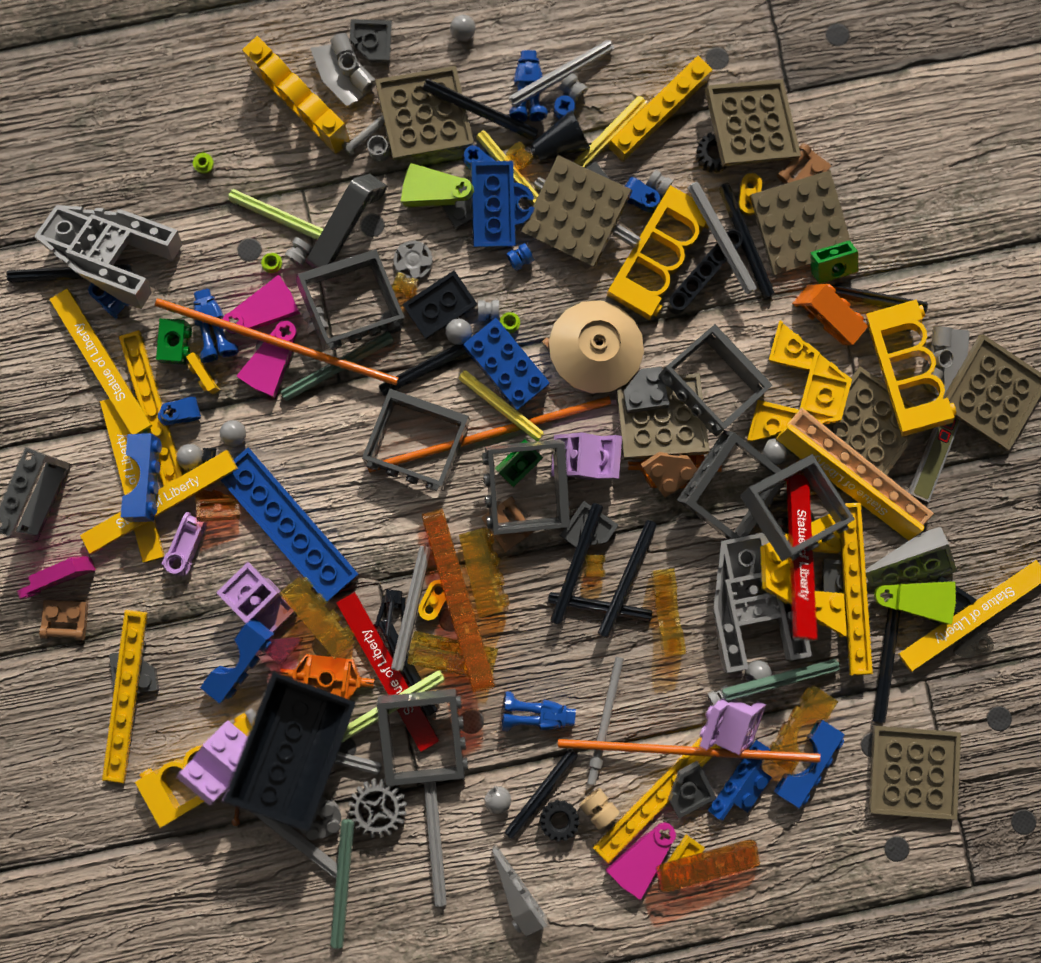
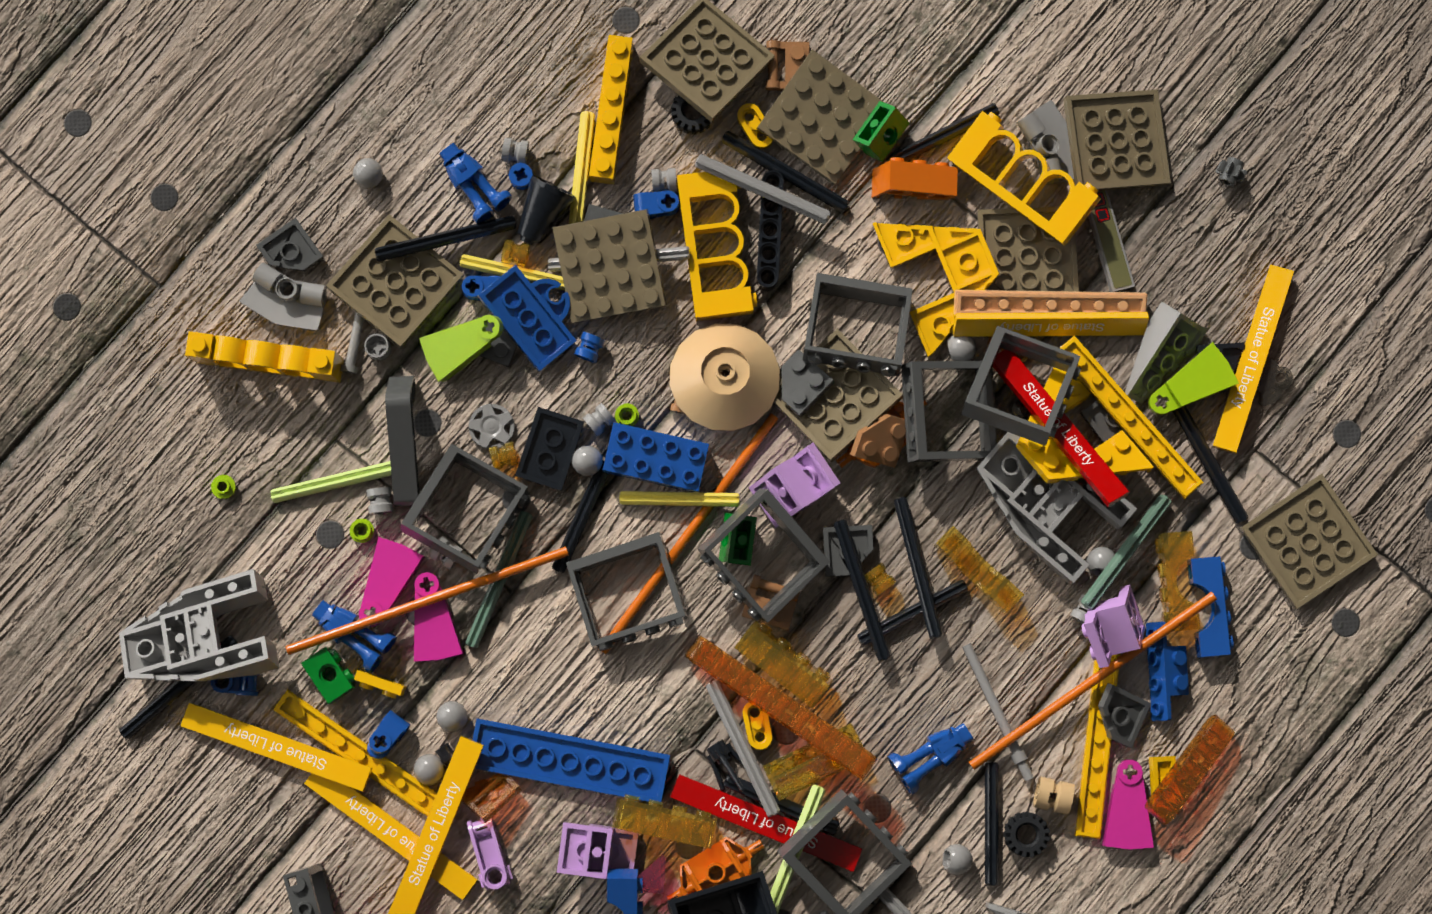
camera: 35 degrees left, 0 degrees up
(141, 501) = (420, 846): blue arch -> none
(561, 73) = (494, 146): light grey axle -> none

